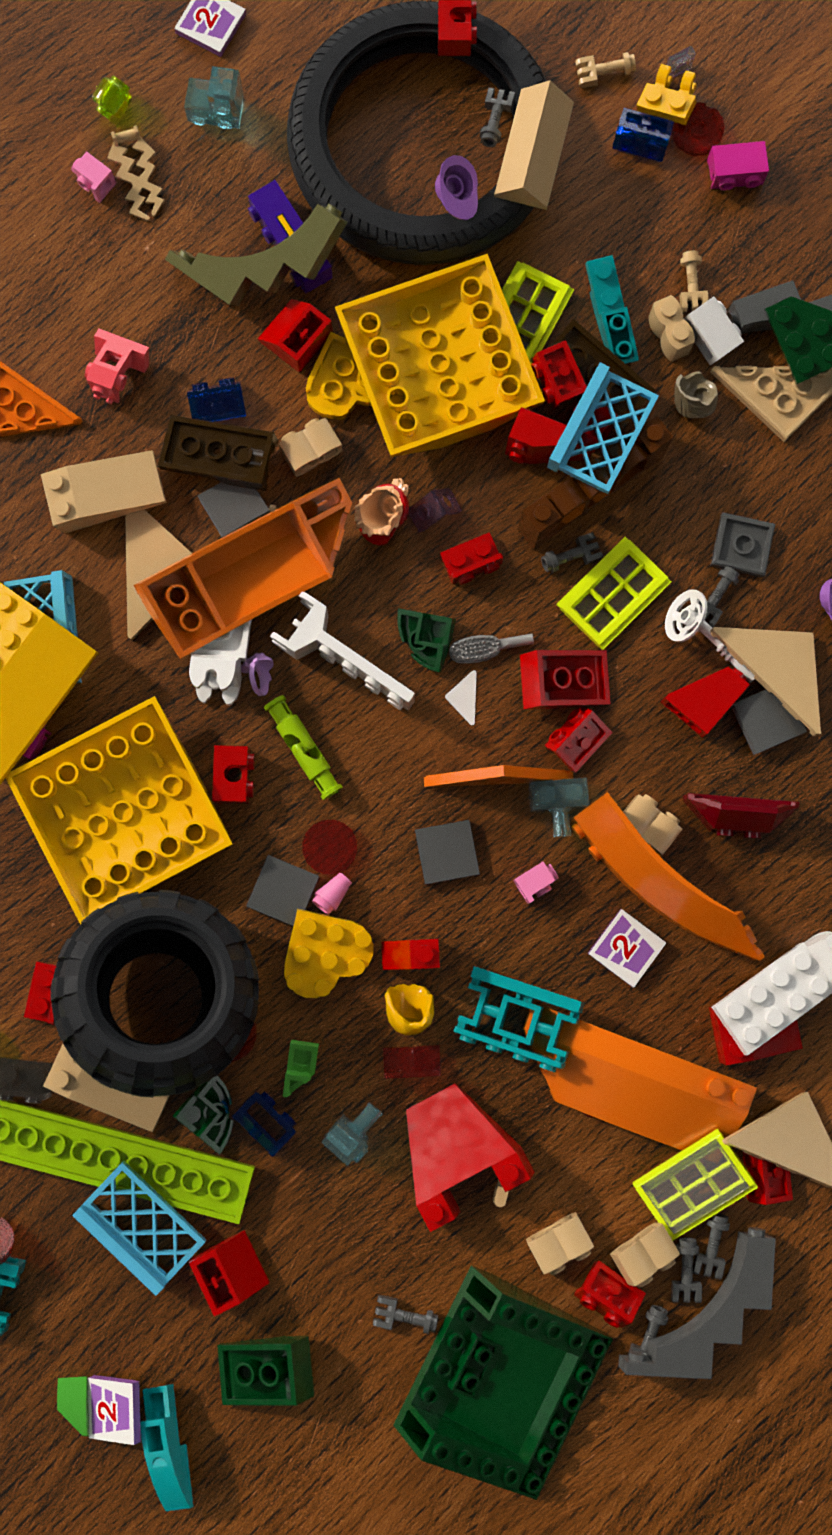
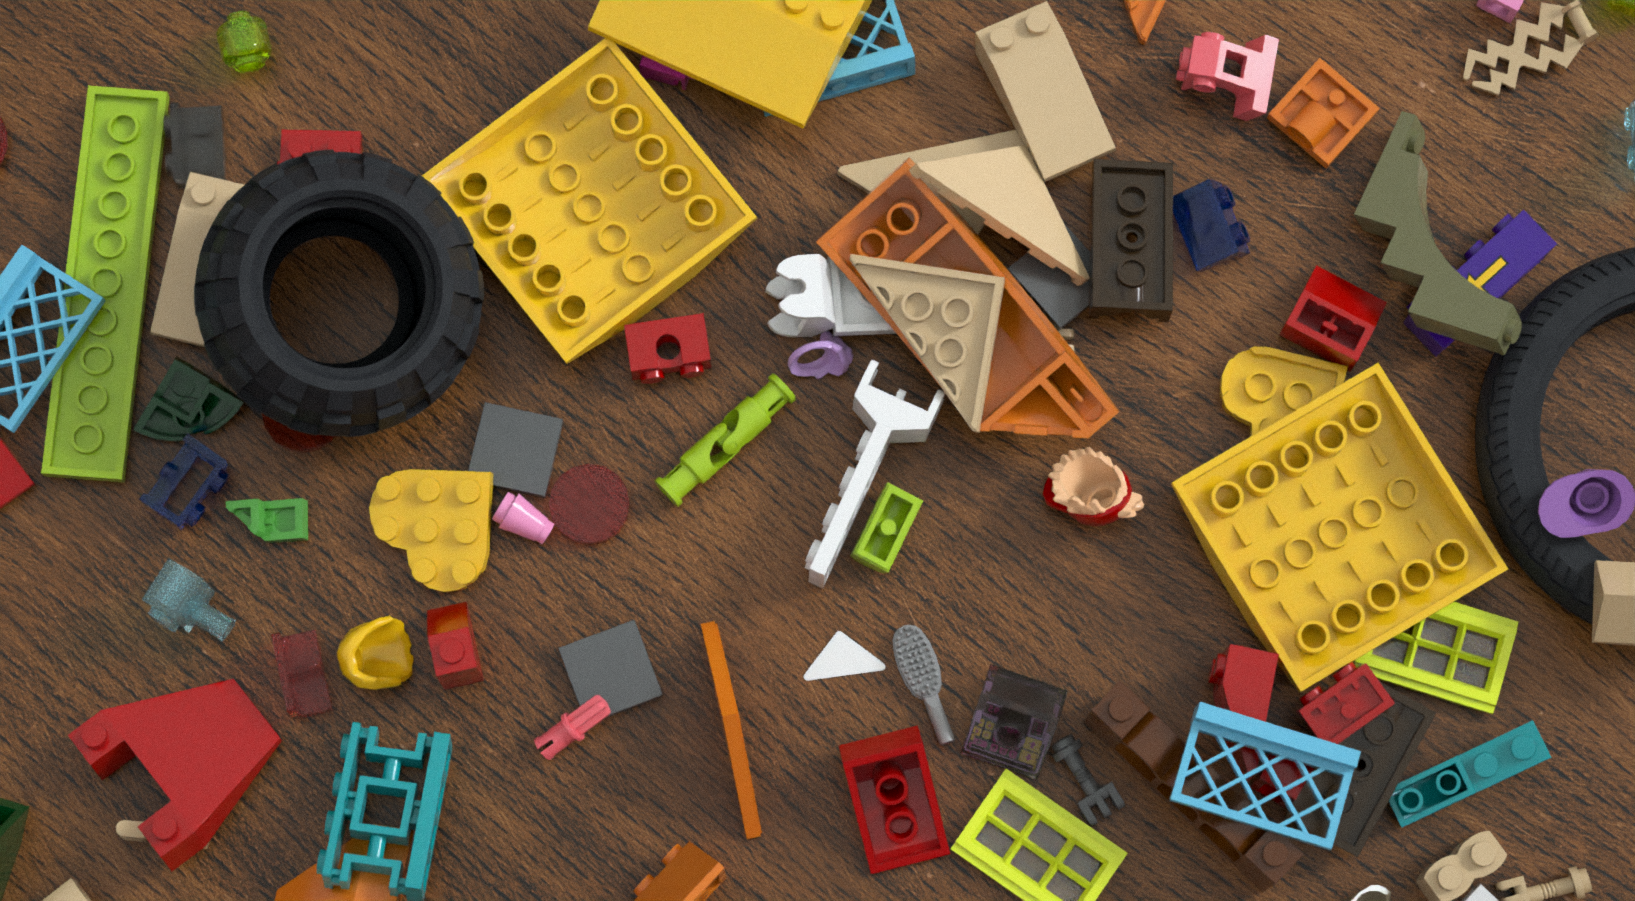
camera: 80 degrees right, 5 degrees down
(154, 313) = (1323, 113): none -> orange plate
(172, 524) = (1011, 199): none -> tan tile
(253, 580) = (947, 321): none -> tan tile
(310, 446) = (1169, 369): tan brick -> none
(383, 651) = (886, 528): none -> lime brick
(427, 636) = (922, 588): dark green brick -> none
(433, 508) = (1112, 561): bracket -> none
(471, 559) = (1049, 632): red bracket -> none
(481, 882) = (573, 726): none -> coral axle
(527, 591) = (1014, 722): none -> clear smoke slope
(536, 881) = (588, 805): bright pink brick -> none
(559, 799) = (713, 818): clear light blue brick -> none
(578, 738) = (810, 833): red bracket -> none

